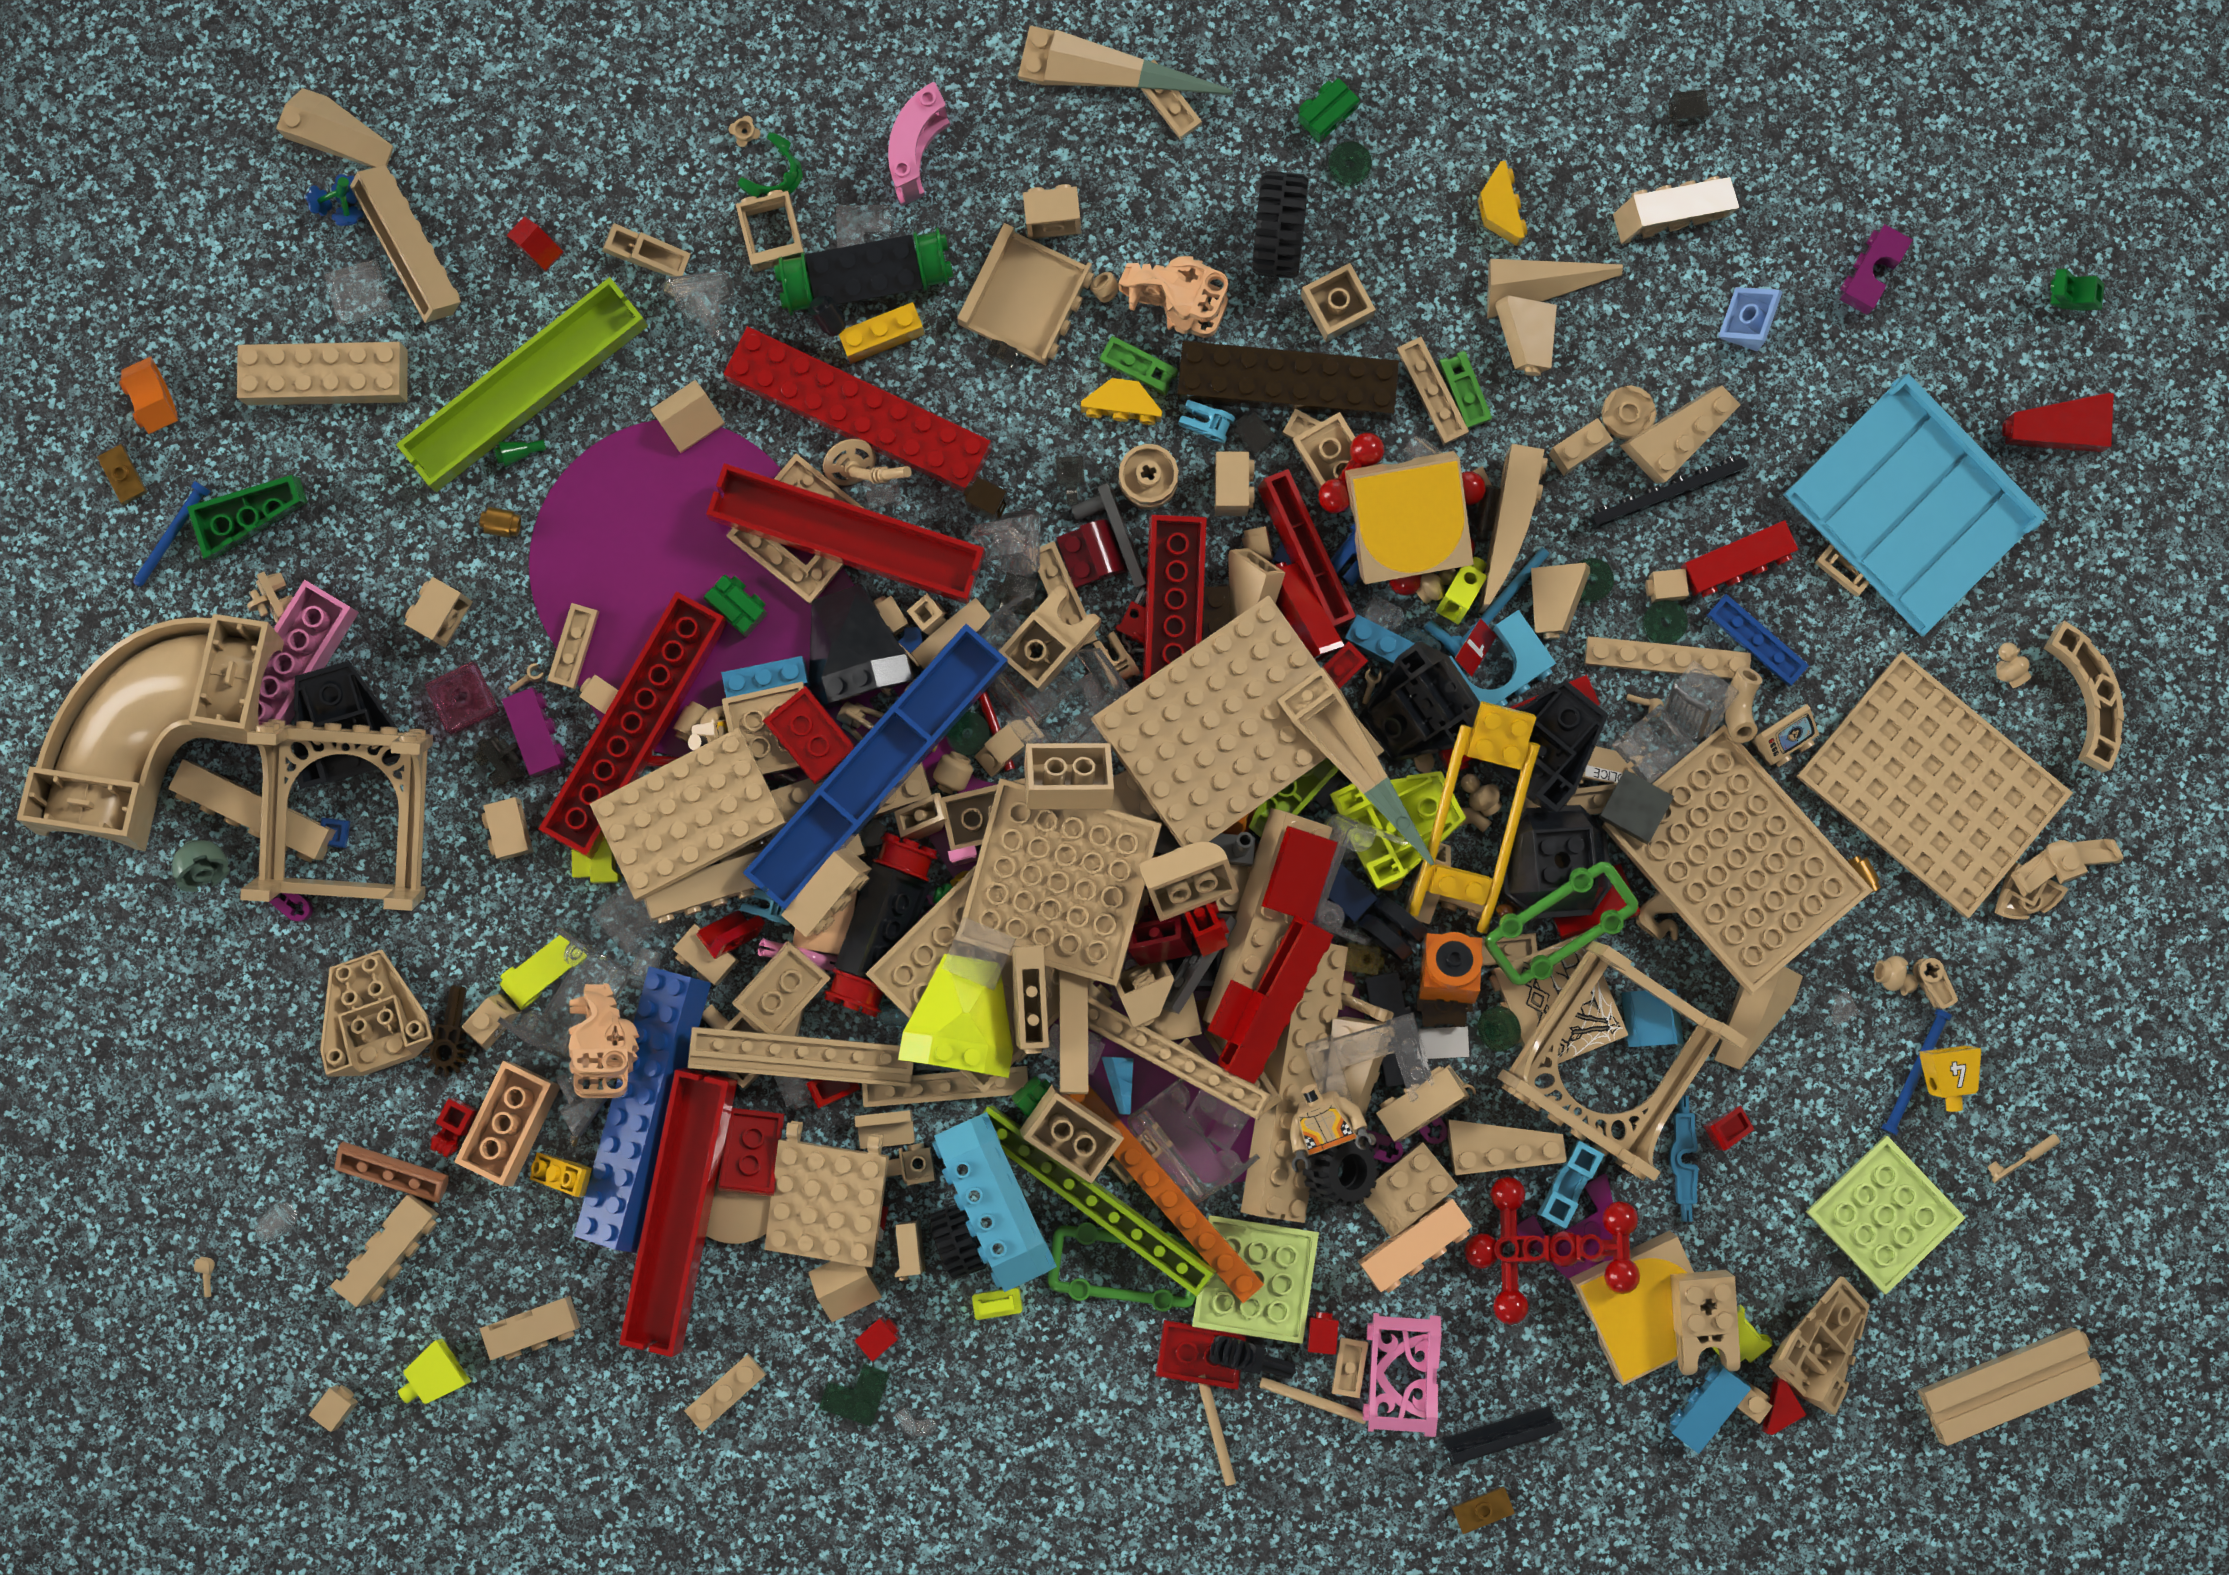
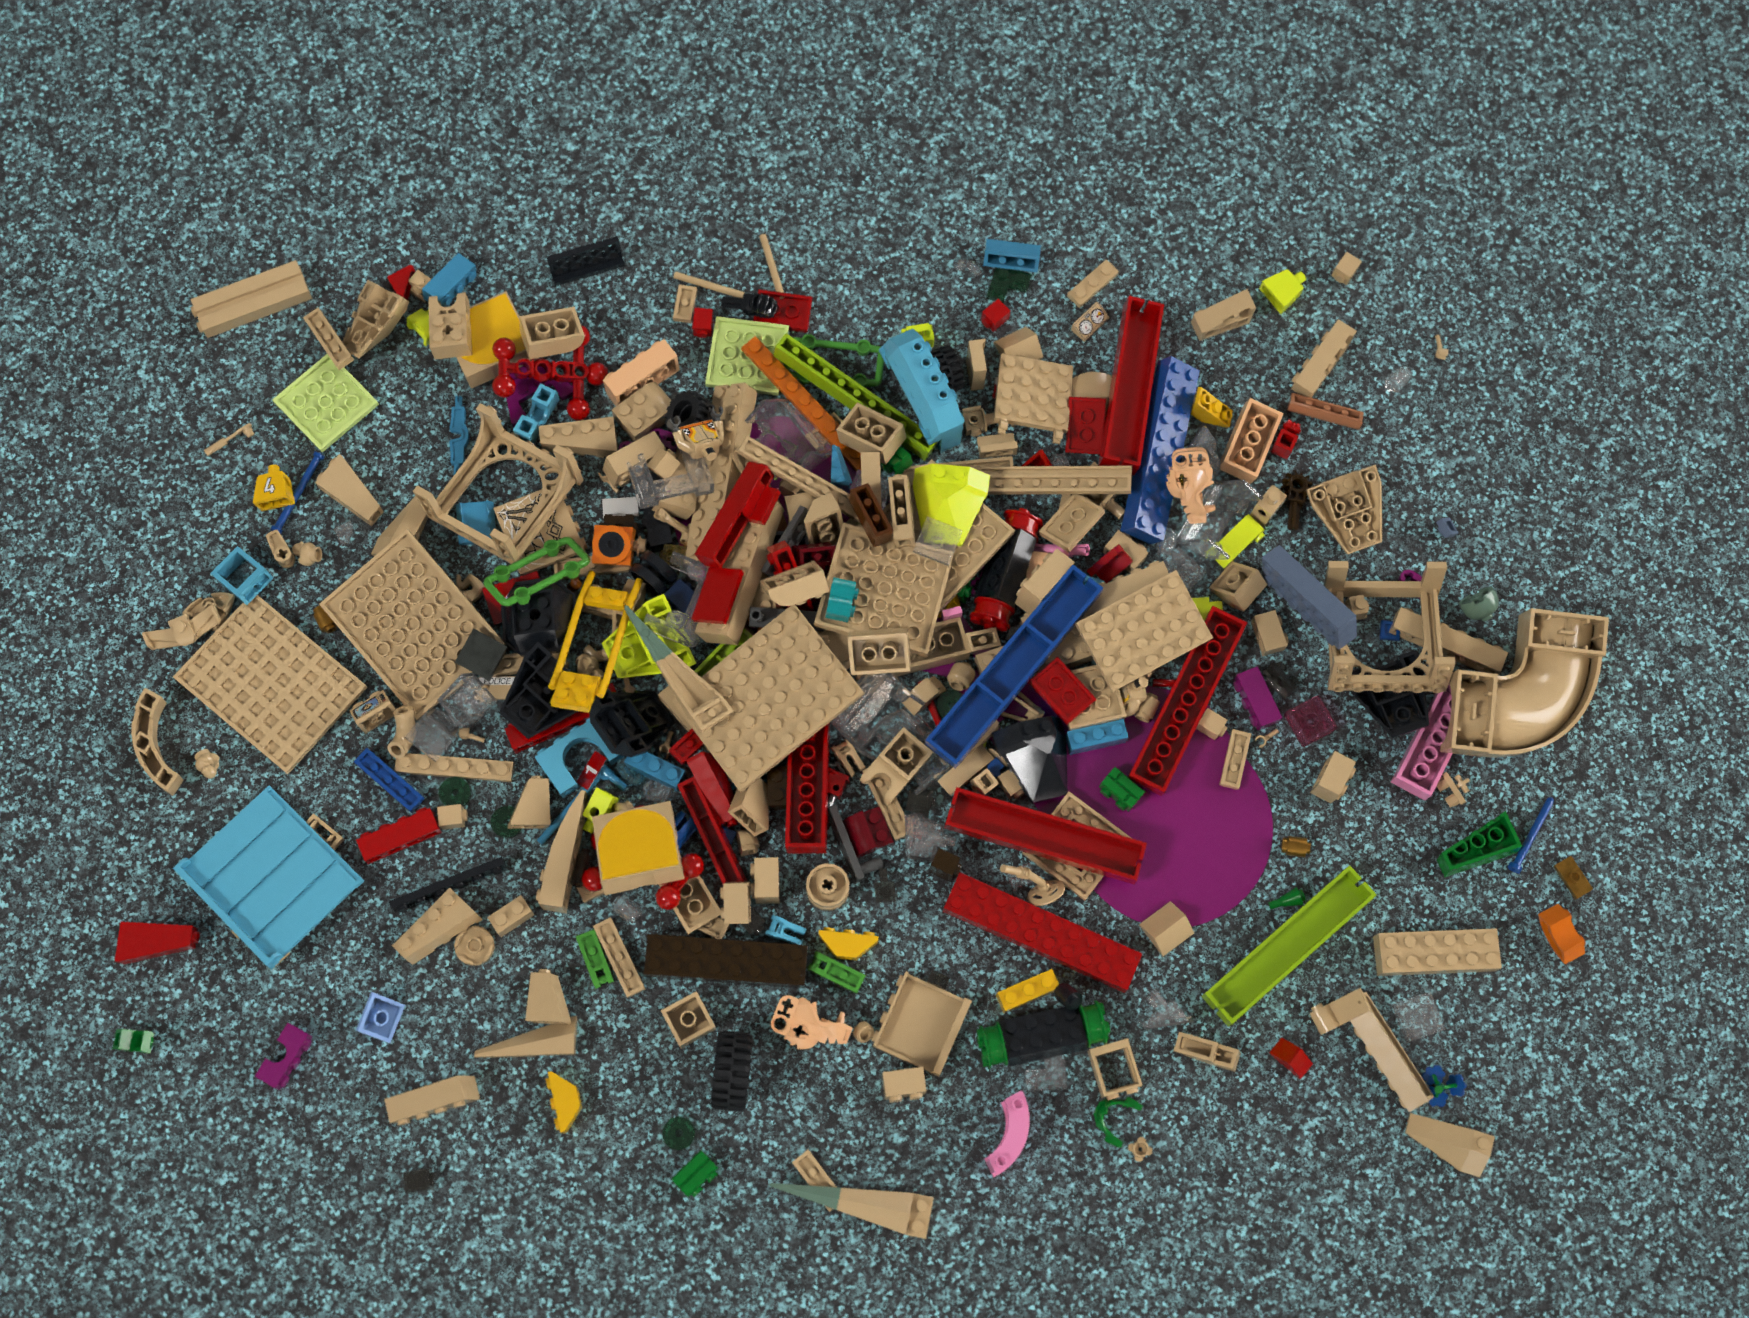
camera: 170 degrees right, 10 degrees down
(231, 984) = (1446, 527): none -> sand blue plate
(378, 863) = (1358, 606): none -> tan brick
(446, 865) = (1309, 597): none -> sand blue brick
(474, 293) = (1340, 1011): none -> tan door
(546, 900) = (1238, 585): none -> tan slope
(733, 1326) = (1090, 322): none -> slope
(847, 1437) = (1012, 255): none -> dark azure brick
(1075, 989) = (870, 515): none -> reddish brown brick
(1121, 855) = (841, 600): none -> teal brick
(1273, 447) = (736, 902): none -> tan brick
(1379, 1088) = (664, 463): none -> tan brick
(1412, 972) = (639, 546): none -> tan plate
(1426, 1406) = (637, 321): bright pink fence -> none
(1483, 1510) = (599, 223): pearl gold plate -> none
(1489, 1031) = (581, 512): clear green piece -> none
(1551, 1301) = (551, 332): none -> tan brick
(1728, 1128) = (427, 453): red slope -> none
(1841, 1072) = (347, 489): none -> tan slope
(1888, 1315) = (328, 338): none -> tan plate
(1966, 926) = (246, 591): none -> medium azure window

